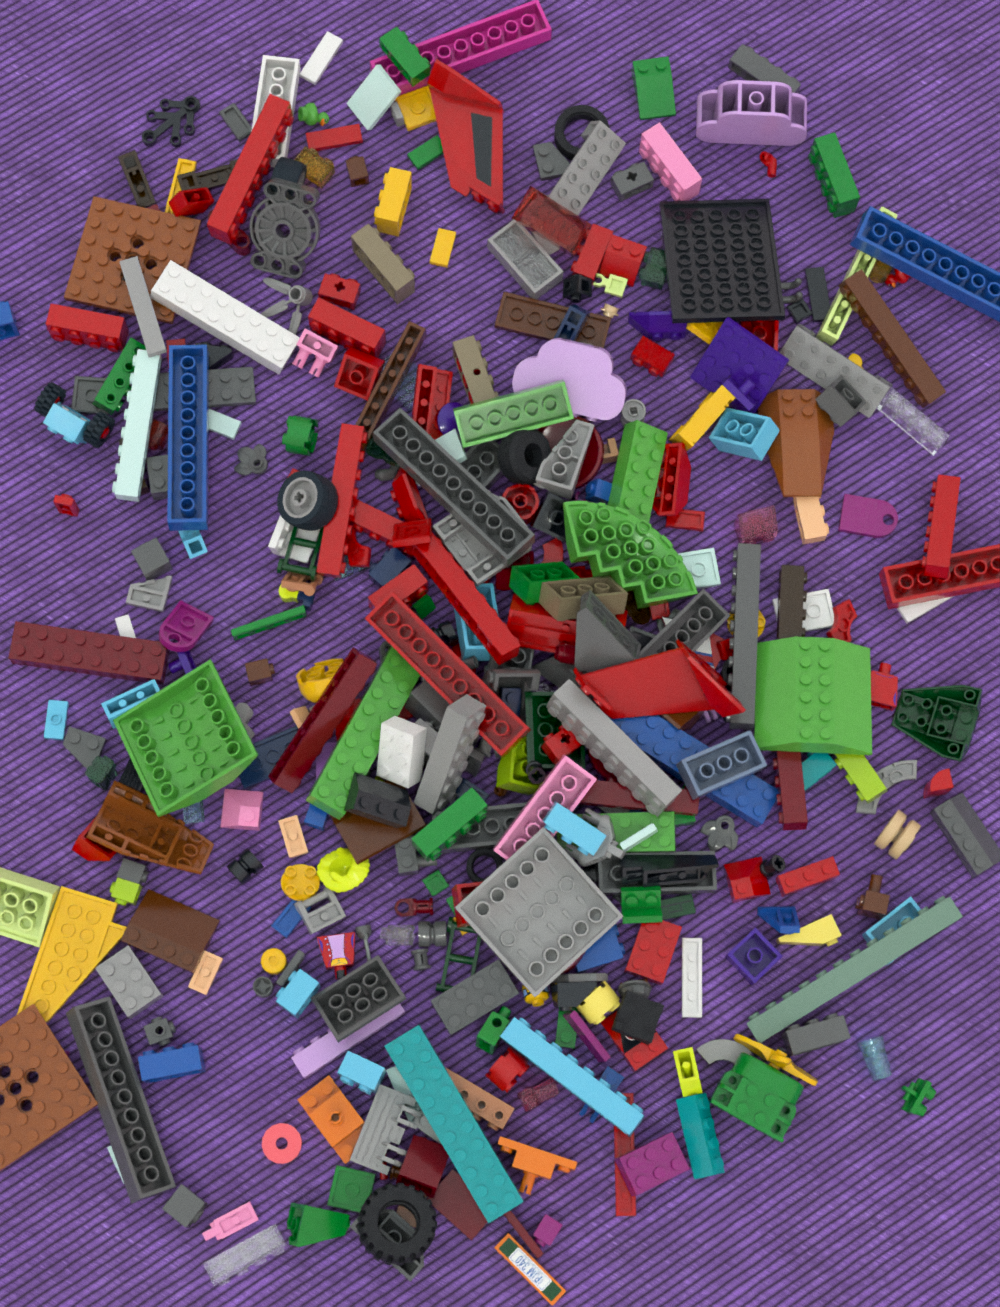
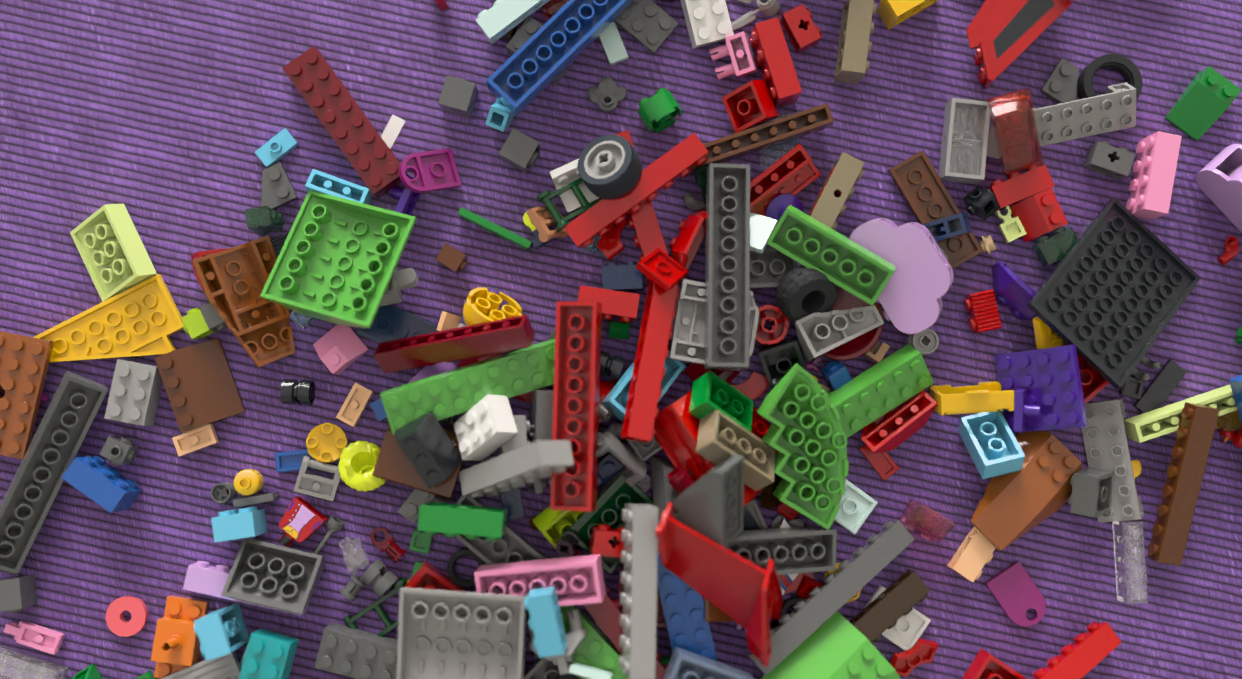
camera: 45 degrees right, 10 degrees up
(150, 594) = (433, 121): light grey wing -> none
(232, 554) = (520, 151): none -> dark grey head
(442, 247) = (912, 71): yellow tile -> none

